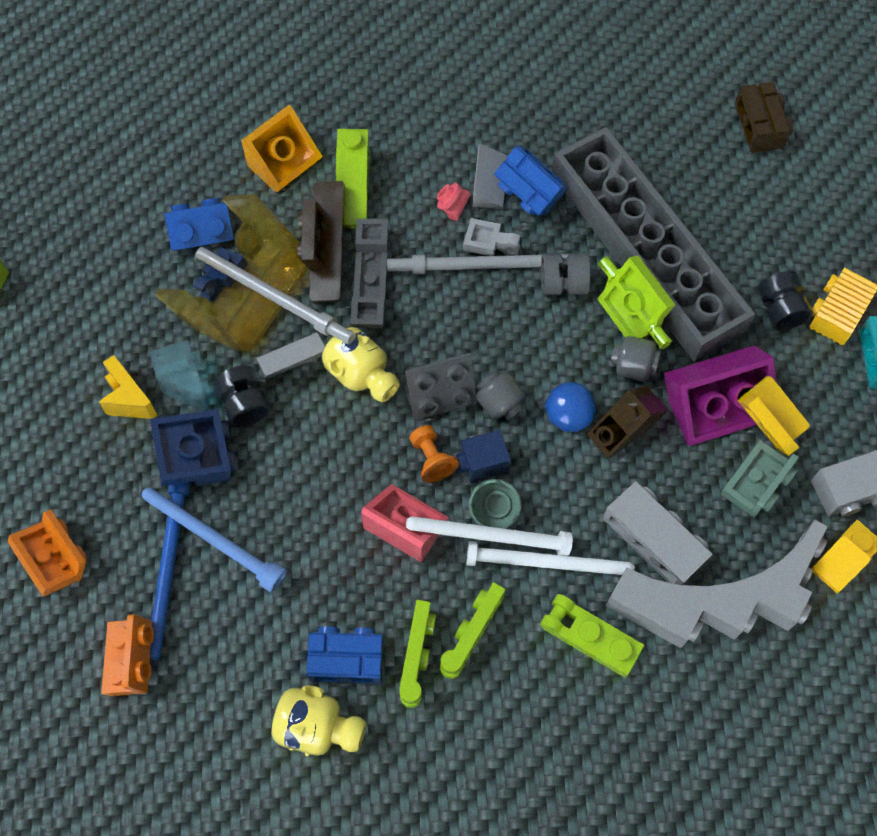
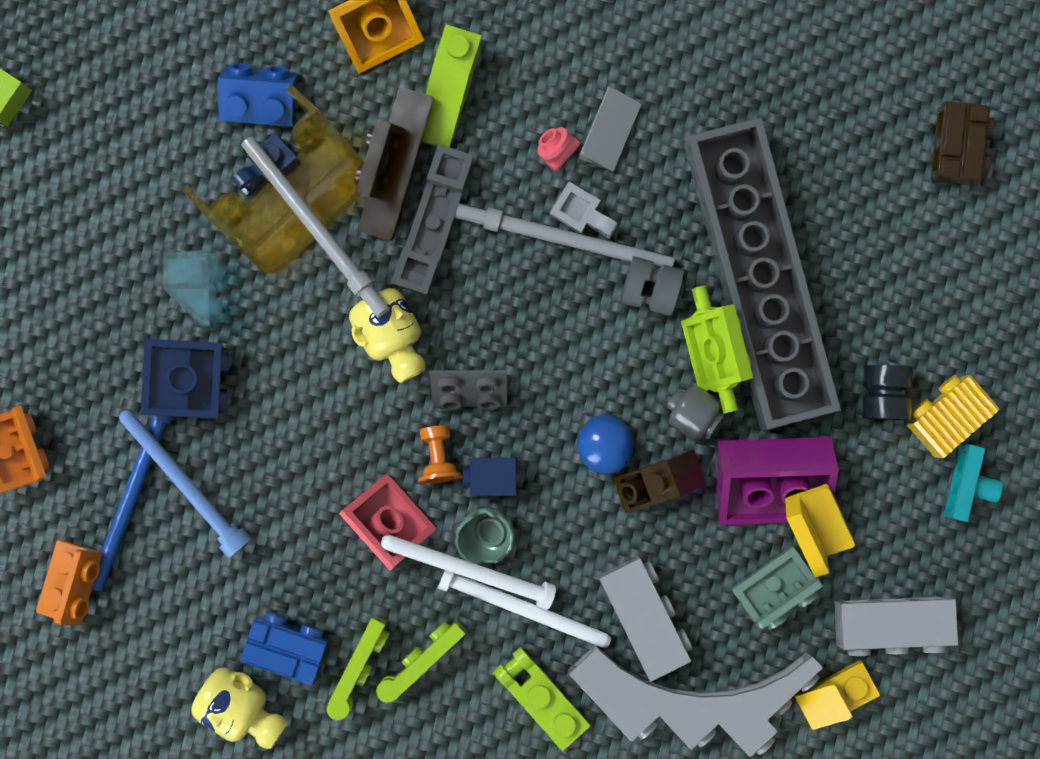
camera: 15 degrees right, 20 degrees up
(127, 397) = (134, 293): yellow slope -> none
(241, 396) = (254, 343): black wheel -> none
(291, 356) = (316, 301): light grey slope -> none
(500, 395) = (532, 411): dark grey head -> none
(530, 181) = (652, 156): blue brick -> none

